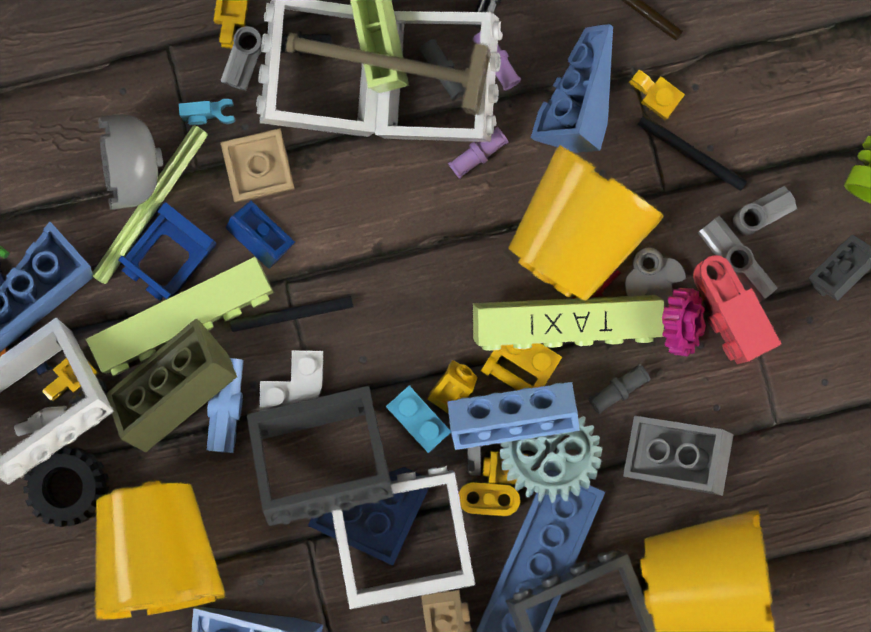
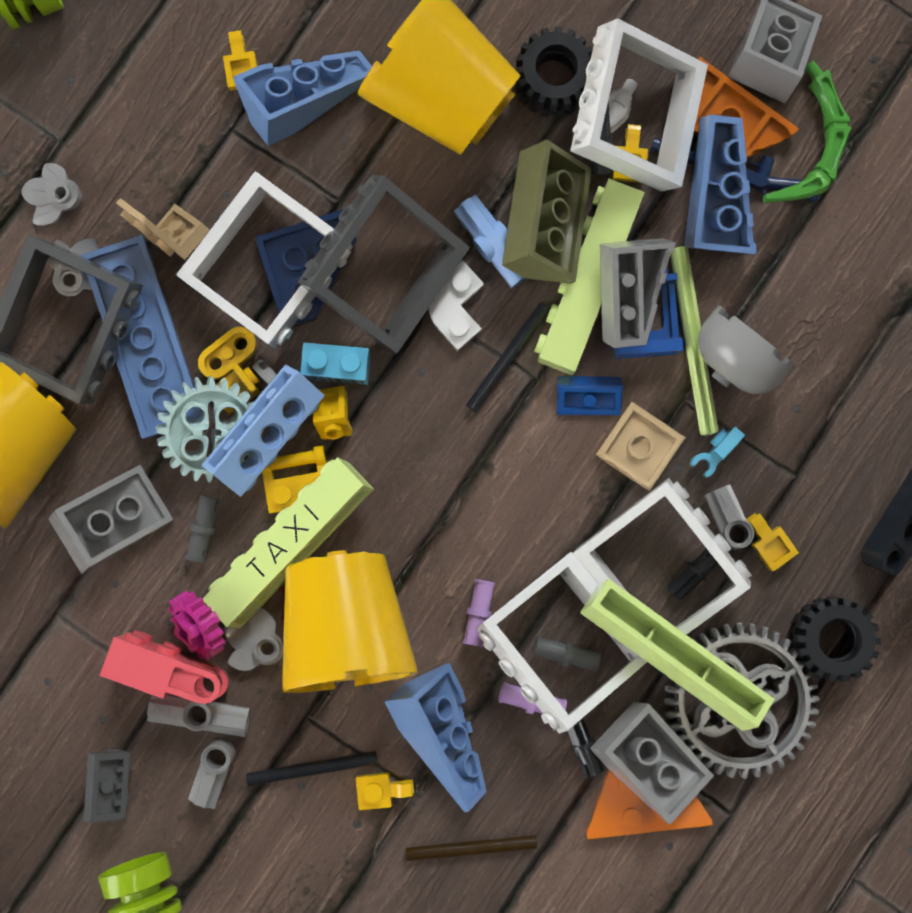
camera: 140 degrees right, 0 degrees up
(161, 277) = (630, 288): none -> light grey wedge
(472, 78) = (533, 659): dark tan tile -> none

